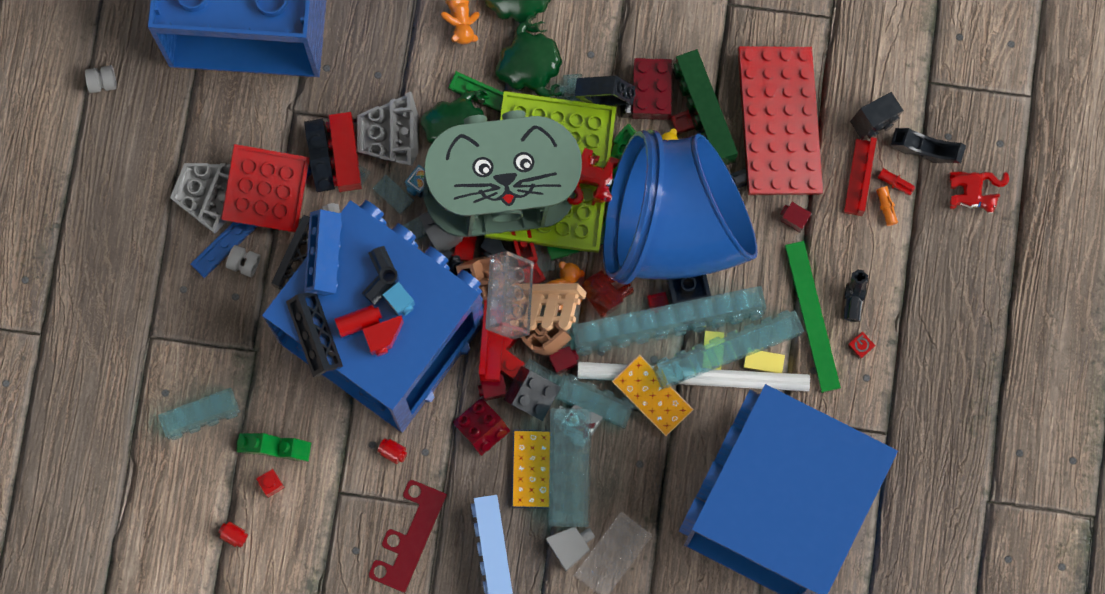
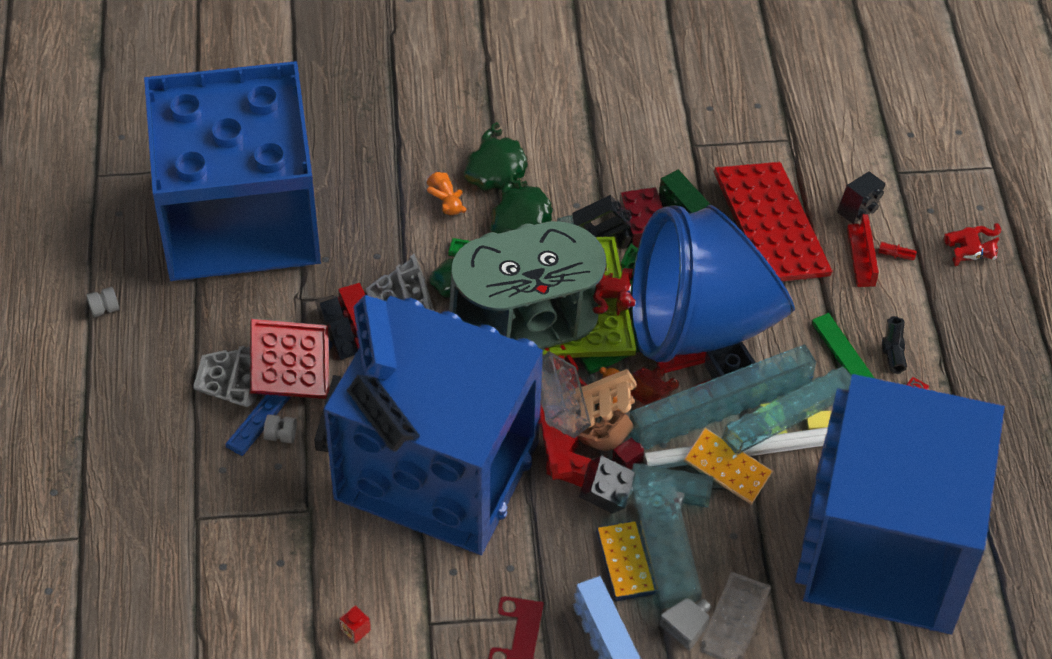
camera: 15 degrees left, 25 degrees down
(199, 413) = (264, 575): clear light blue brick -> none
(274, 446) = (343, 586): green arch -> none
(358, 320) = (425, 391): red brick -> none
(383, 265) = (444, 345): black piece -> none
(383, 335) = (454, 398): red slope -> none
(392, 451) = (476, 570): red brick -> none
(399, 300) = (463, 365): dark azure brick -> none
(481, 426) = (564, 528): dark red bracket -> none
(492, 390) = (564, 493): dark red brick -> none
(795, 216) = (813, 294): dark red brick -> none
(887, 206) = (896, 271): orange pin -> none
(932, 149) = (925, 218): black arch -> none

